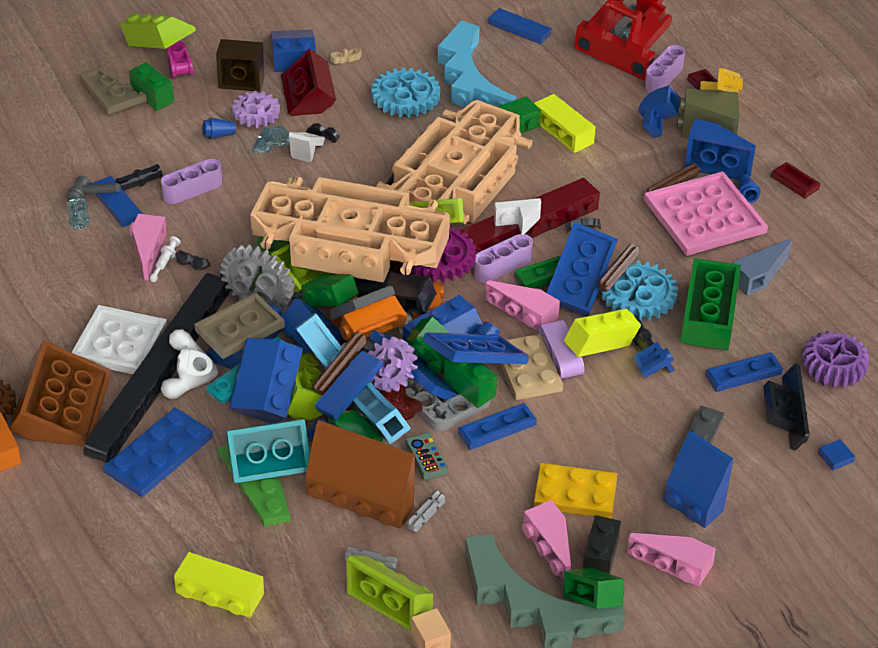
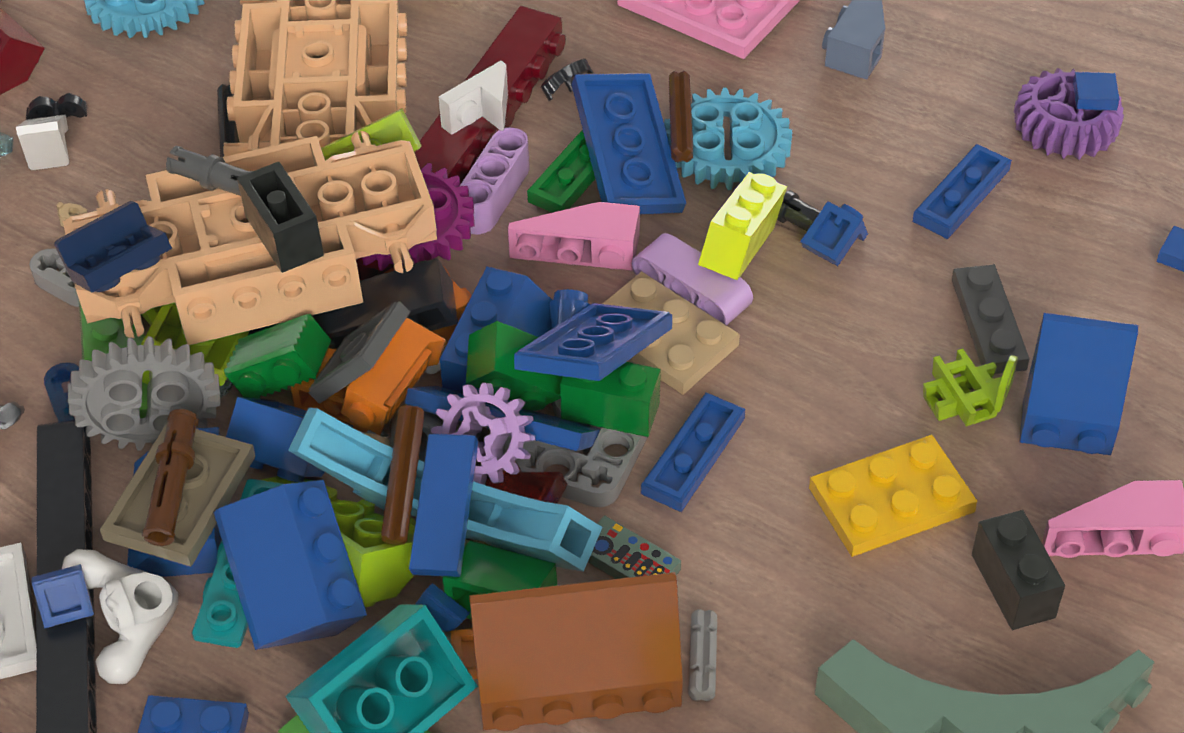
camera: 30 degrees left, 5 degrees up
(163, 345) = (62, 596): none -> tile
(243, 309) = (174, 460): none -> reddish brown pin
(274, 201) = (111, 248): none -> dark blue bracket
(345, 188) = (209, 171): none -> dark grey pin
(355, 220) = (280, 216): none -> pearl dark grey brick
(548, 531) = (928, 590): bright pink slope -> none
(593, 588) = (1078, 645): green brick -> none
(653, 466) = (955, 392): none -> lime piece
(710, 304) = (848, 112): green brick -> none
(787, 406) = (1073, 211): black bracket -> none
(851, 351) = (1096, 91): none -> blue tile

